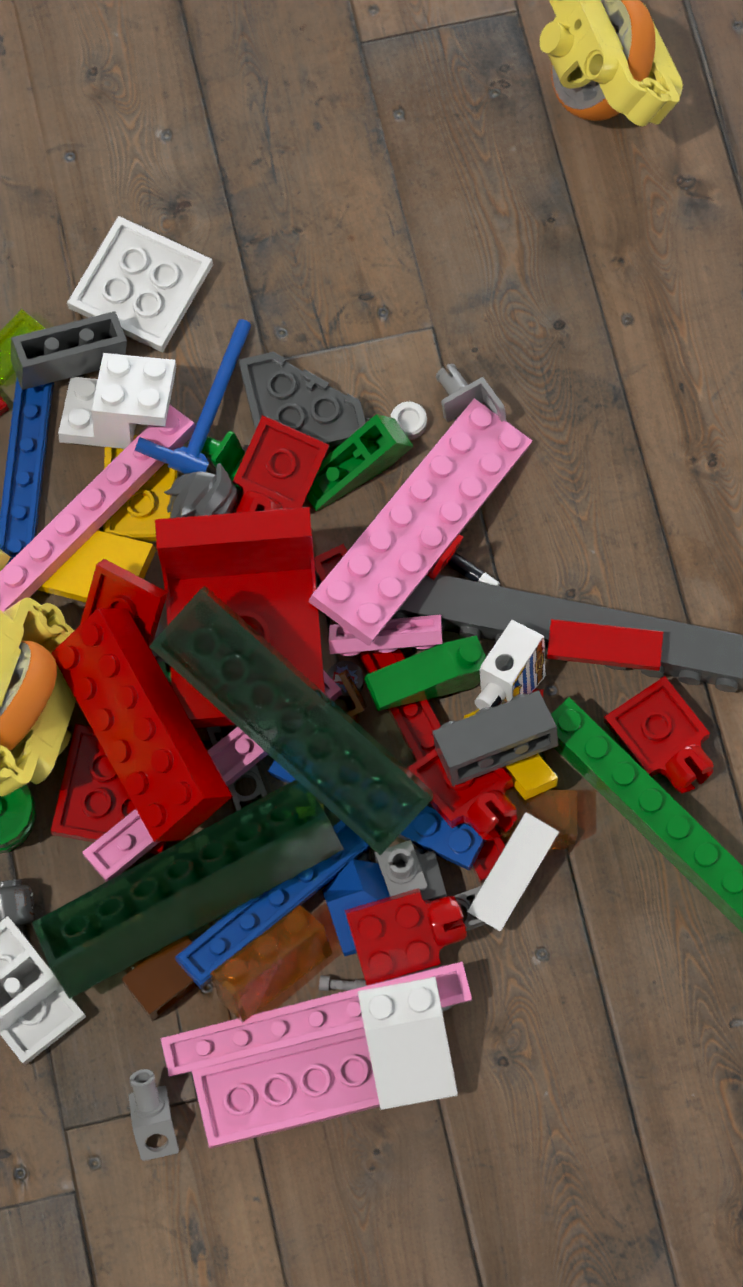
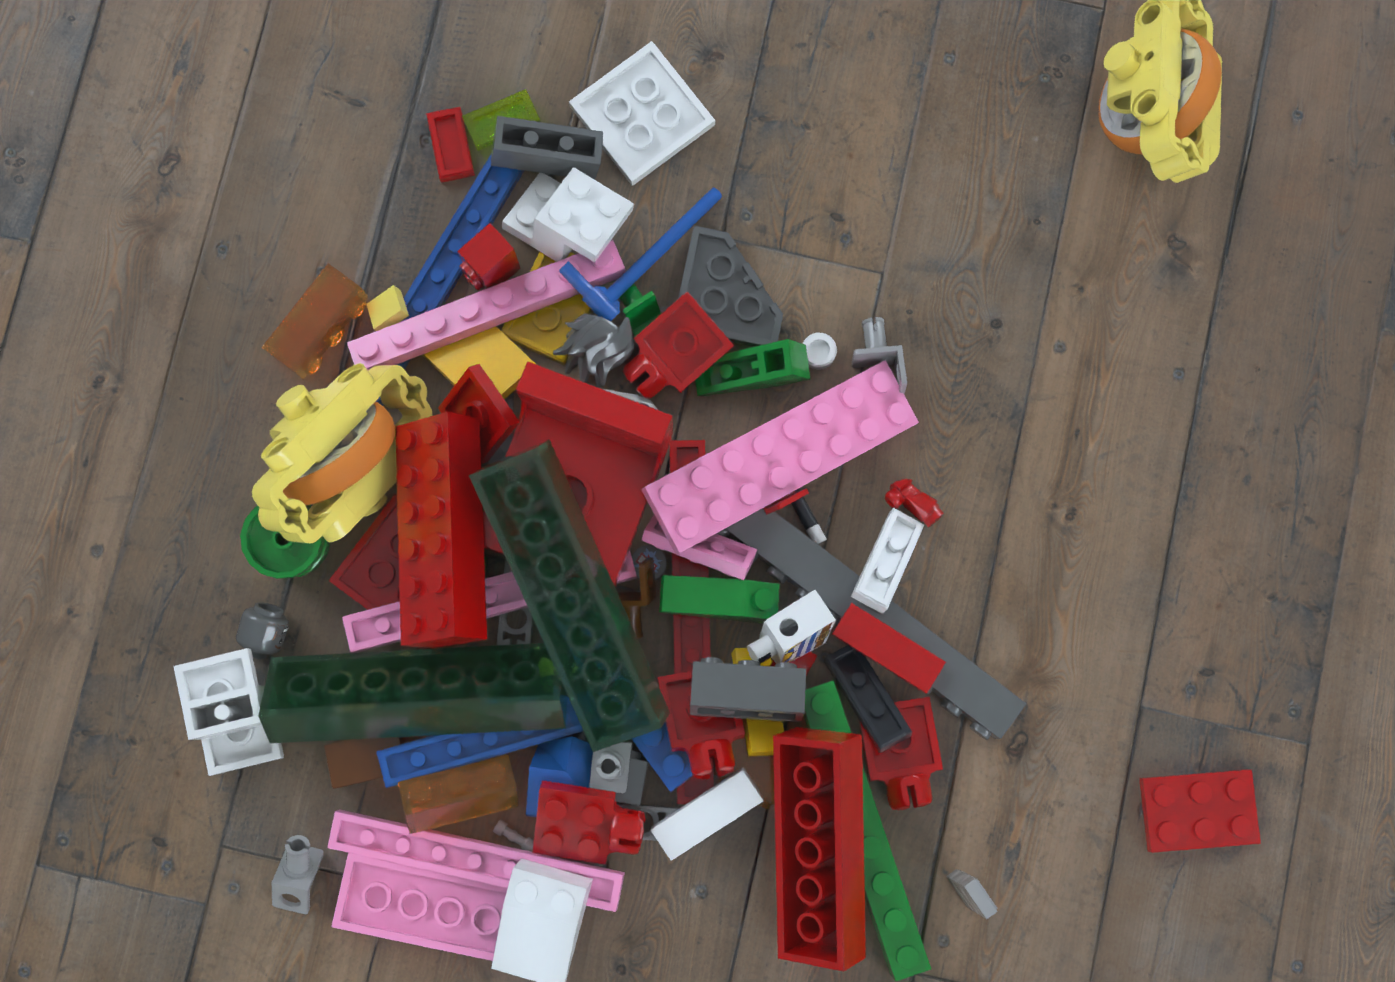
camera: 20 degrees right, 10 degrees up
(62, 471) = (488, 259): none -> red brick
(563, 511) = (915, 501): none -> red arm
(565, 571) = (887, 561): none -> white tile
(608, 701) = (868, 698): none -> black tile
(631, 846) = (819, 847): none -> red brick

